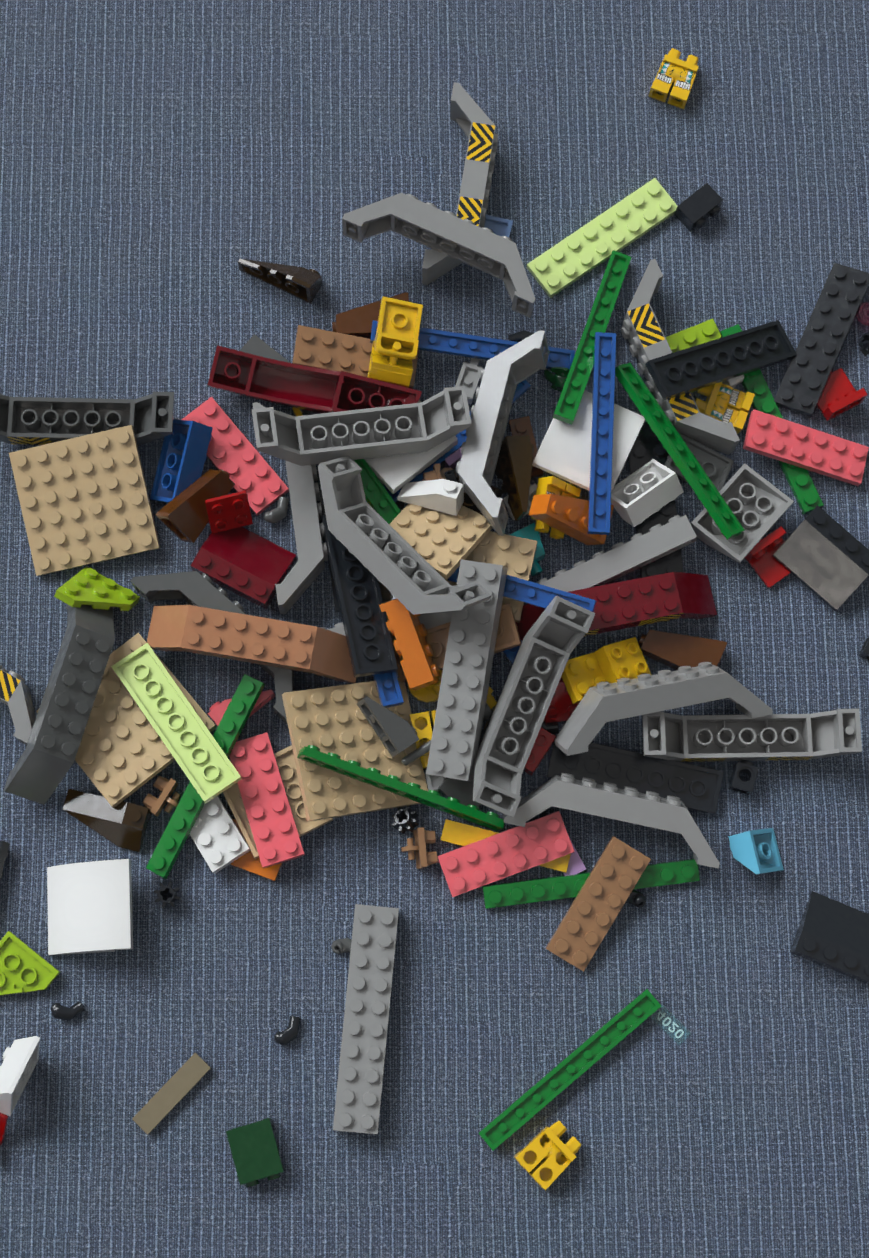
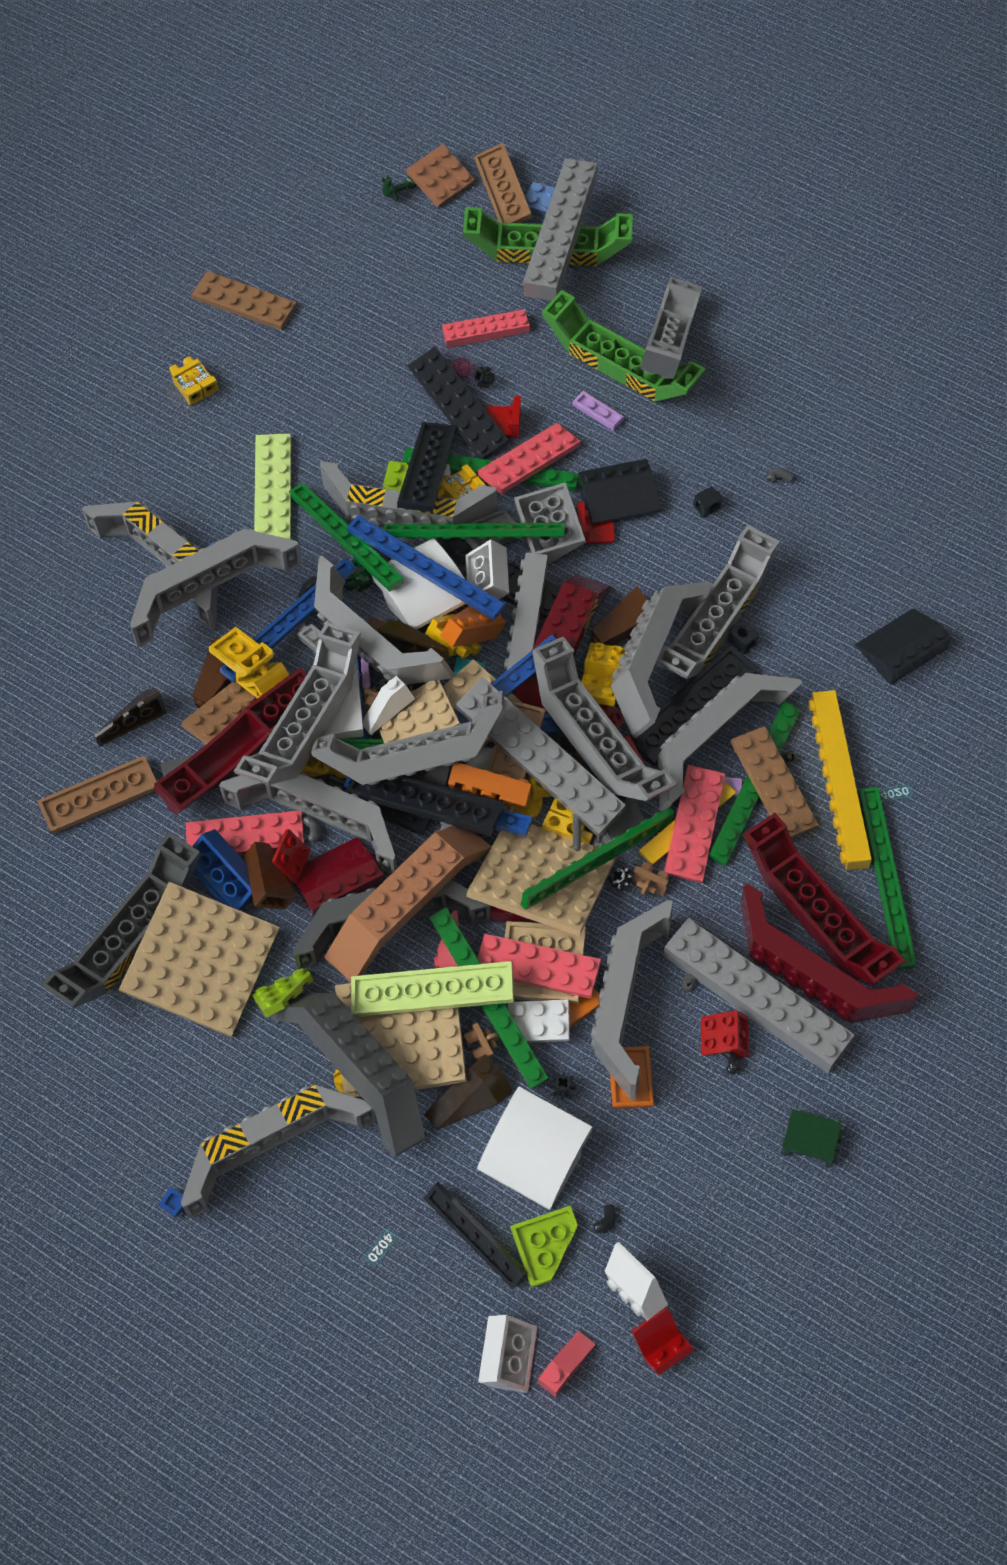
camera: 50 degrees left, 15 degrees down
(171, 1093) = (725, 1178): dark tan tile -> none
(189, 303) = (97, 795): none -> medium nougat plate
(216, 950) = (639, 1056): none -> orange tile
(282, 890) = (618, 990): none -> light grey slope
(309, 1011) = (725, 1034): none -> red bracket
(391, 729) = (547, 839): dark grey slope -> none
(416, 1056) = (813, 974): none -> dark red slope
(489, 1026) = (817, 905): none -> dark red slope
(555, 1152) = (943, 929): yellow hips -> none
(646, 964) = (840, 781): none -> yellow brick
(699, 207) = (300, 421): black brick -> none
(757, 850) = (801, 659): medium azure slope -> none
(802, 61) = (244, 300): none -> medium nougat plate

